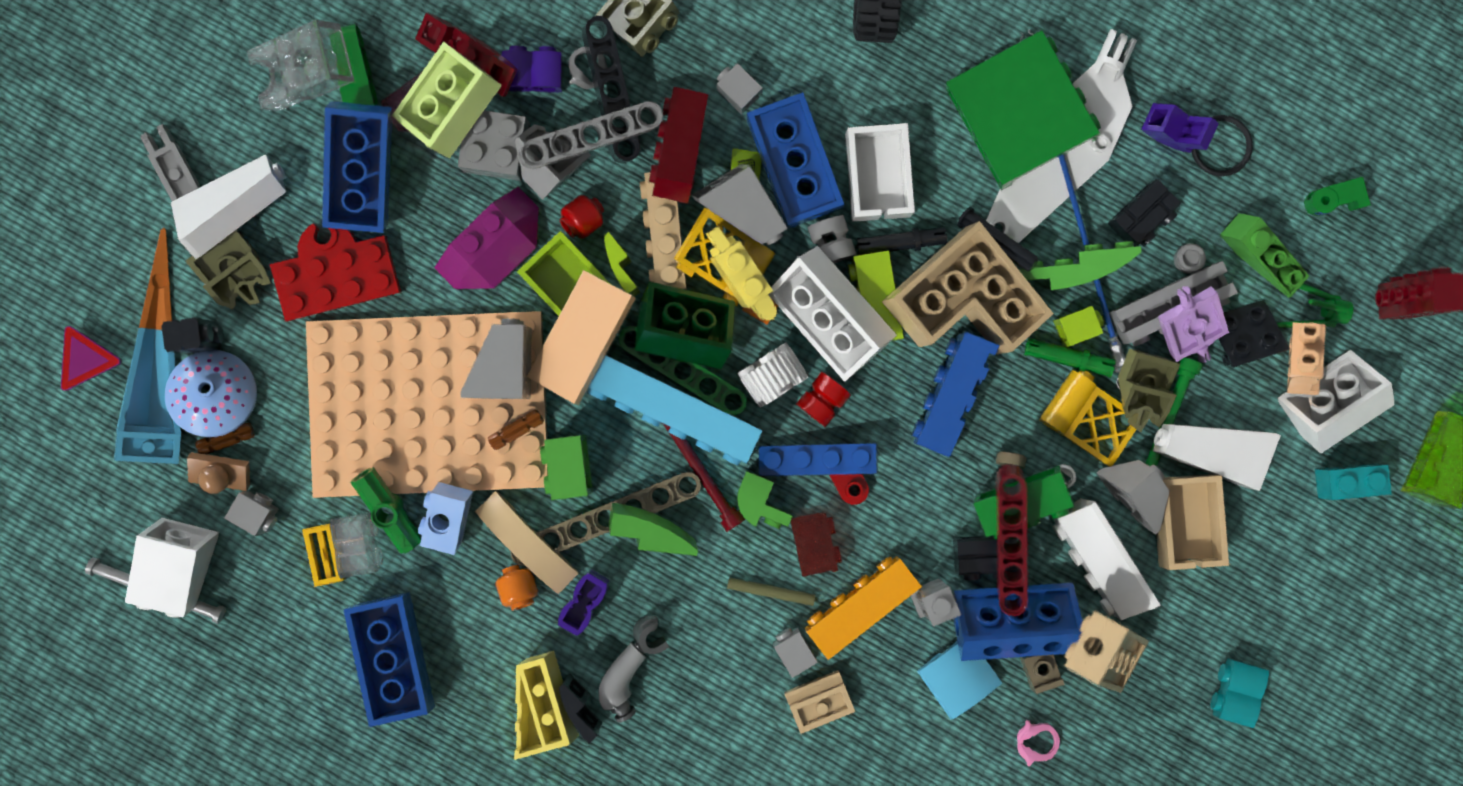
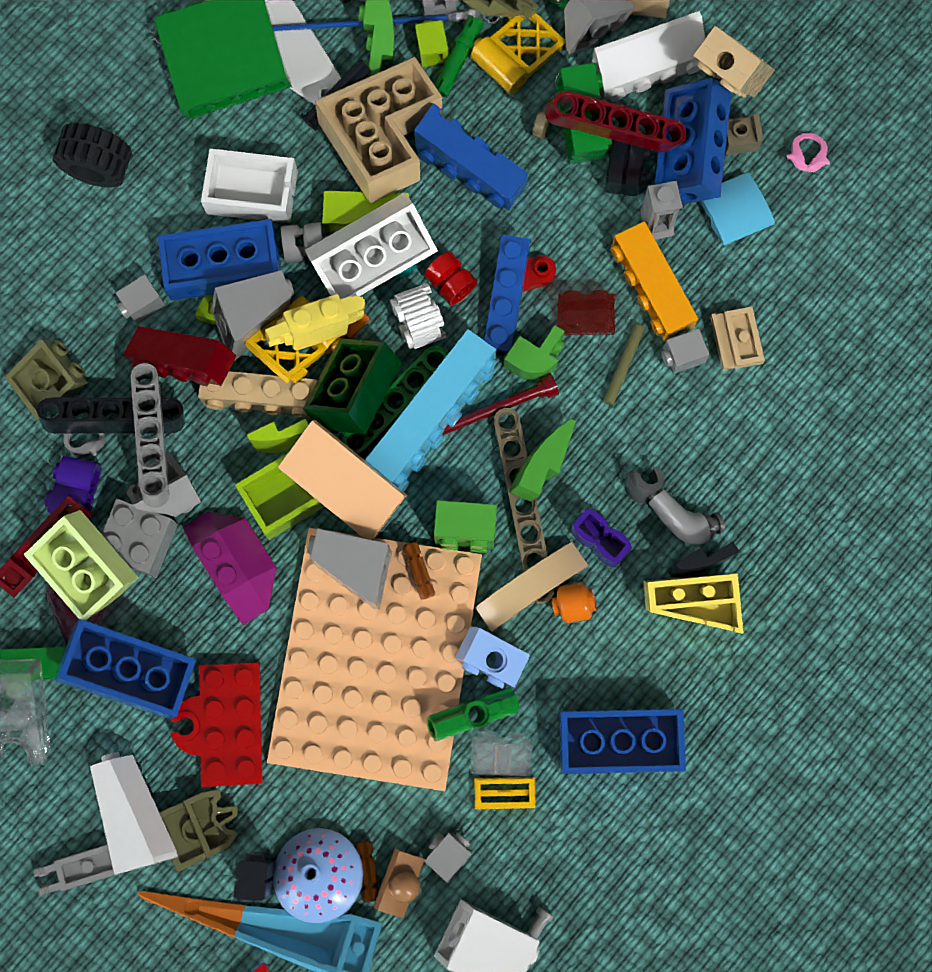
camera: 75 degrees left, 10 degrees down
(581, 216) = (225, 468): red head -> none
(901, 241) = (318, 180): black pin -> none

